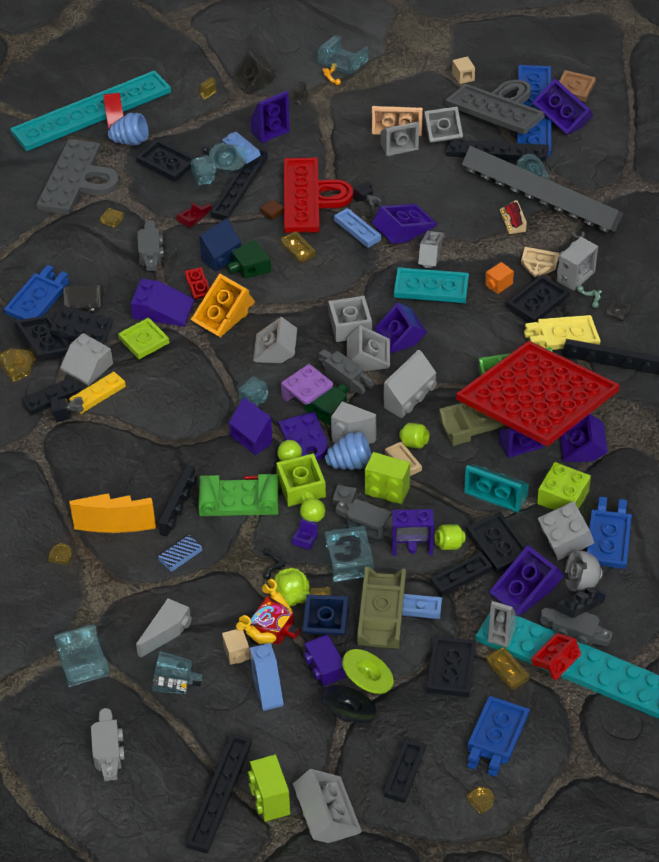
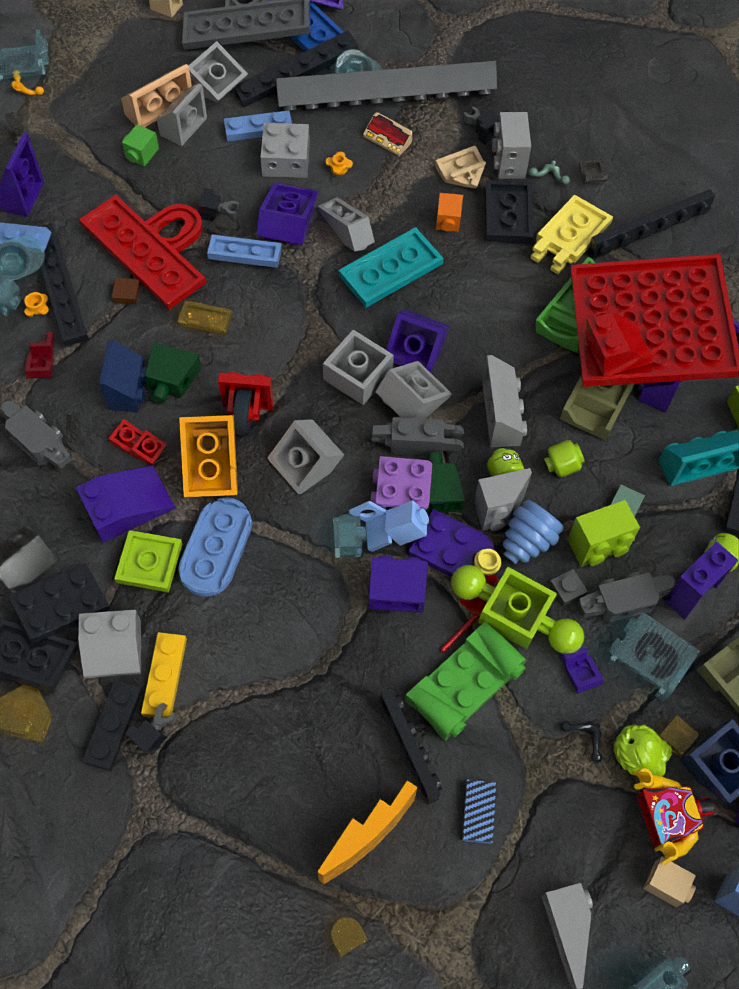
camera: 45 degrees left, 15 degrees up
(184, 355) = (215, 547): none -> medium blue tile
(217, 187) = (36, 299): none -> light orange plate
(270, 295) = (245, 398): none -> red plate
(278, 395) = (375, 525): none -> light blue bracket
(288, 404) = (406, 523): none -> light blue brick
(310, 448) = (487, 561): none -> light yellow plate
(359, 140) = (140, 145): none -> bright green brick
(382, 415) = (504, 462): none -> lime head
(401, 452) = (576, 494): tan tile -> none
(427, 481) = (632, 498): none -> sand green tile
(439, 189) = (285, 150): none -> light grey piece
(442, 169) = (252, 126): none -> medium blue plate
(465, 216) = (339, 163): none -> light orange plate
(493, 384) = (616, 344): none -> red slope

